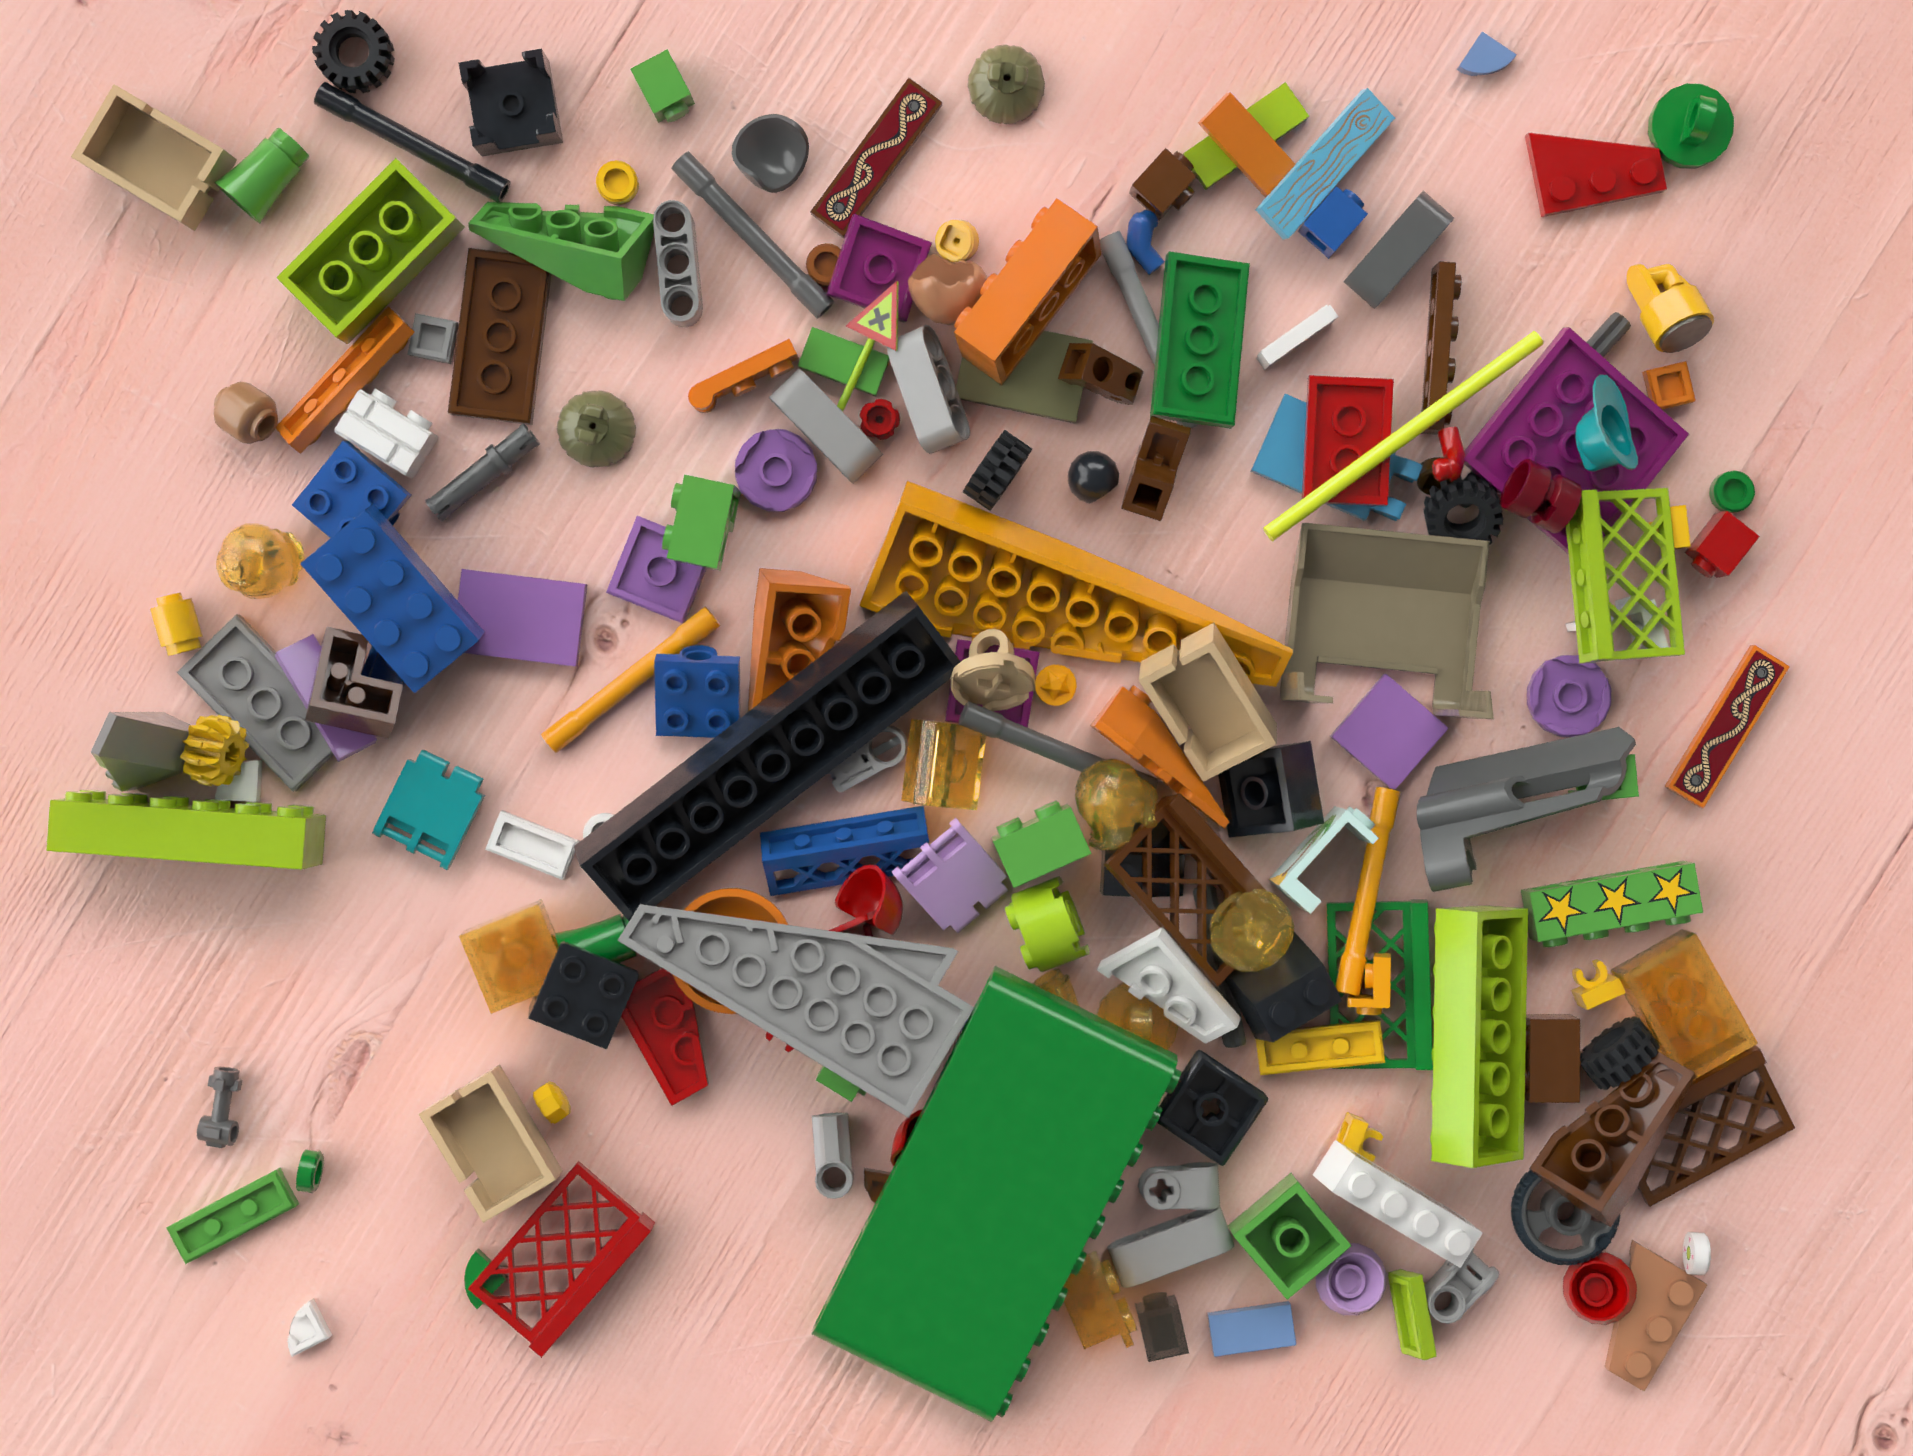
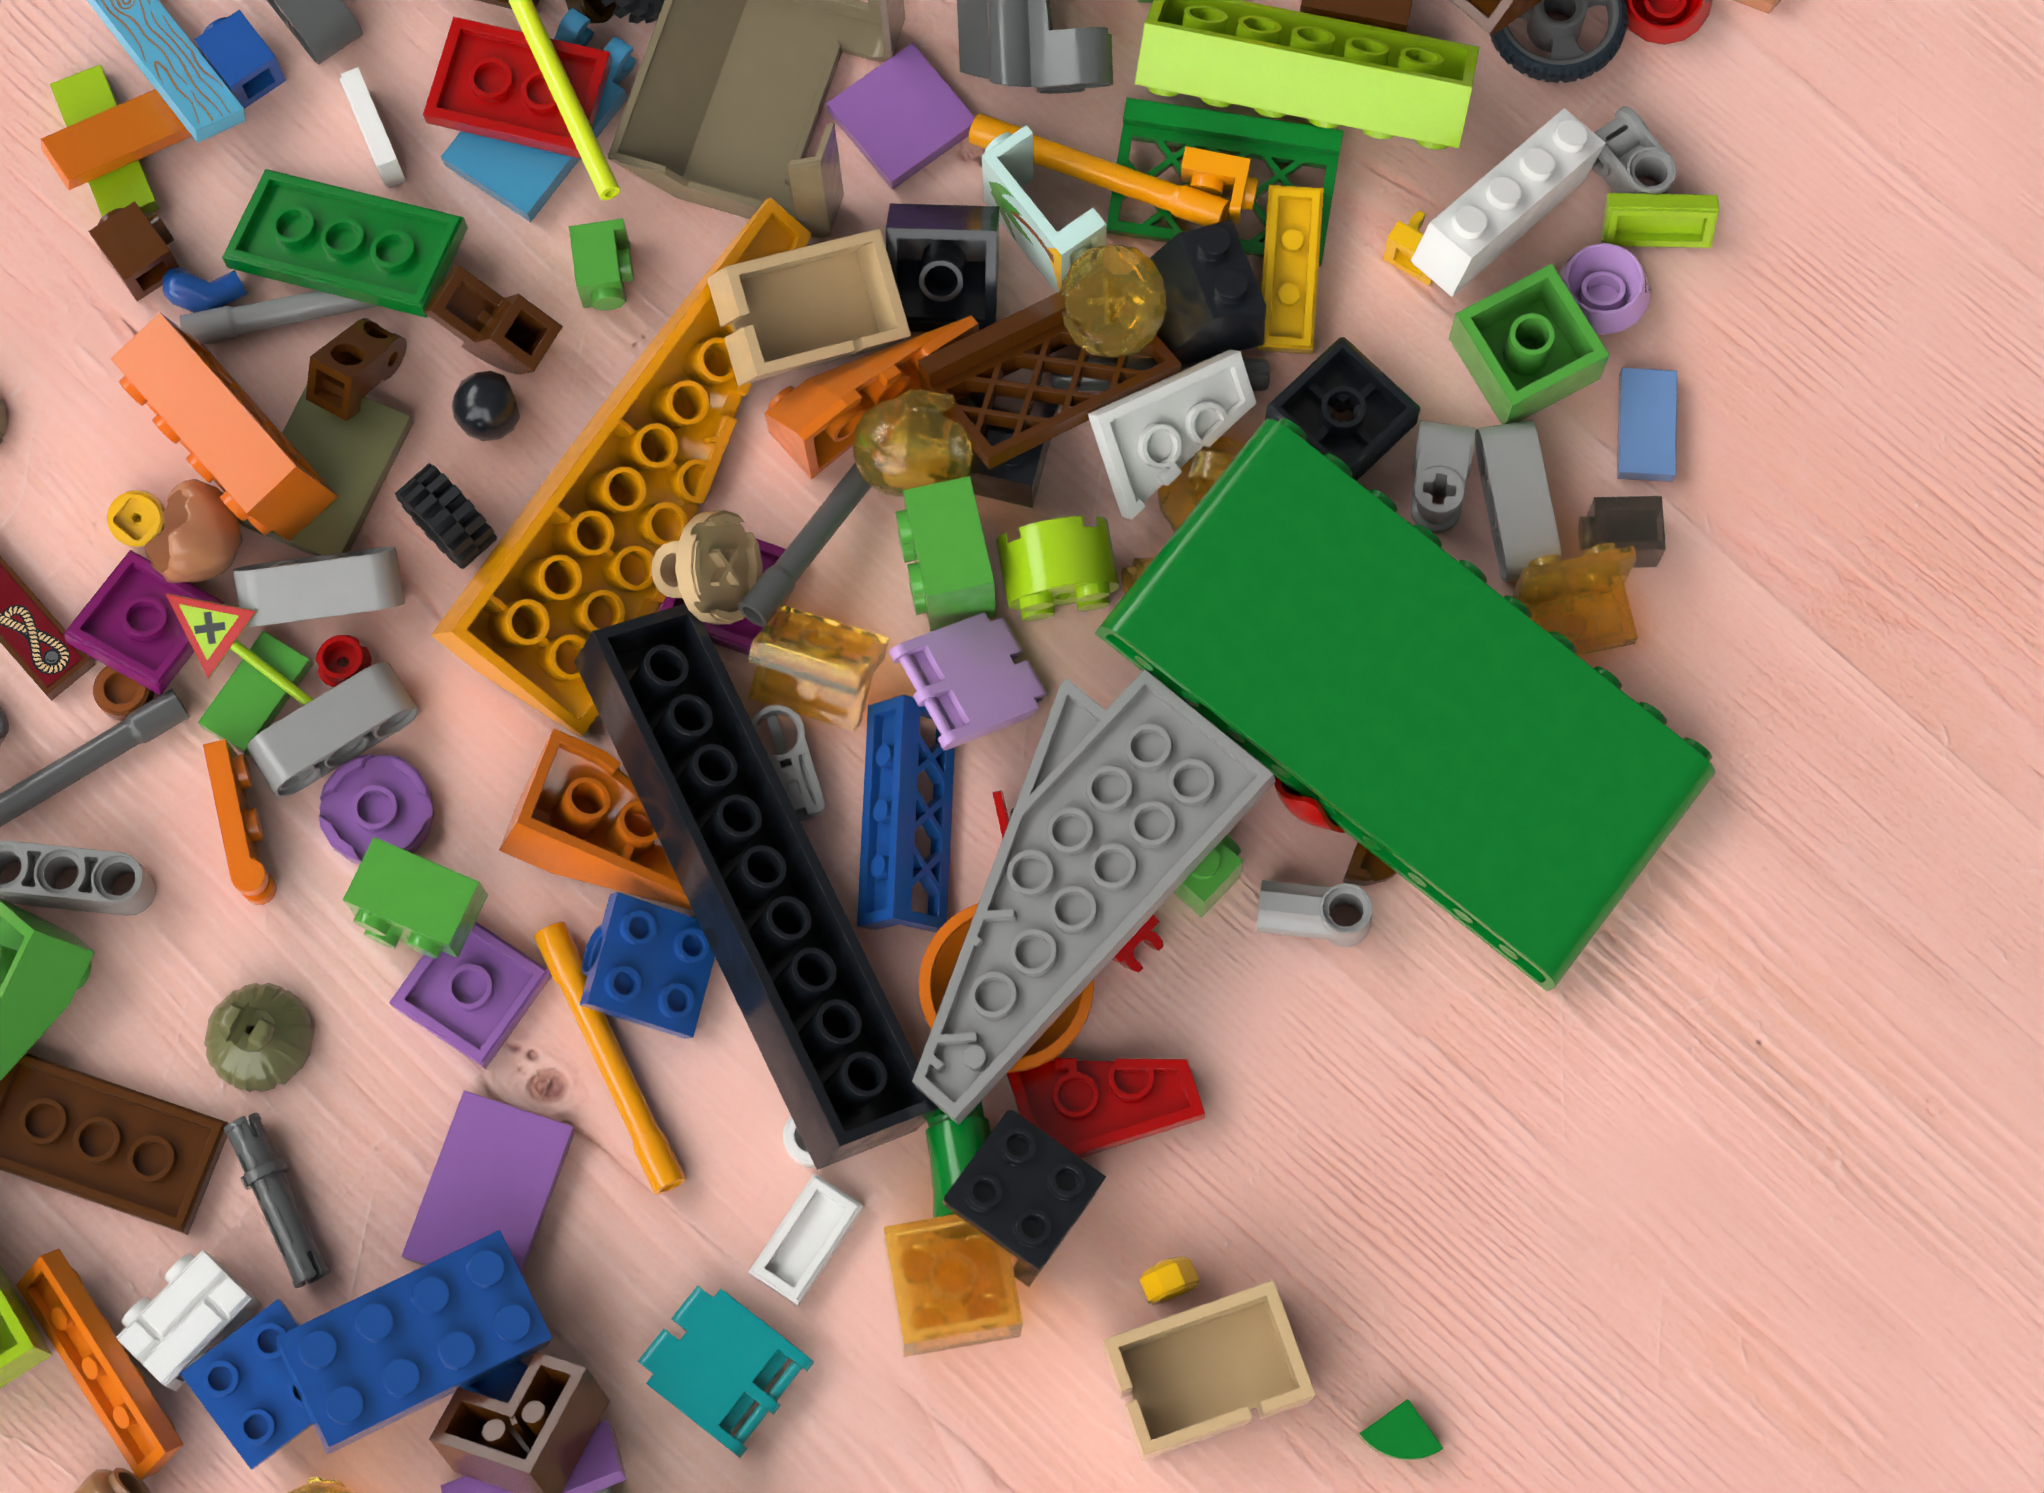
camera: 75 degrees left, 15 degrees down
(433, 338) = (79, 1233): light grey tile -> none
(590, 1279) = (1431, 1279): red fence -> none
(868, 891) = (964, 785): red helmet -> none
(1055, 685) = (751, 502): light orange tile -> none
(1220, 535) = (601, 263): none -> bright green brick

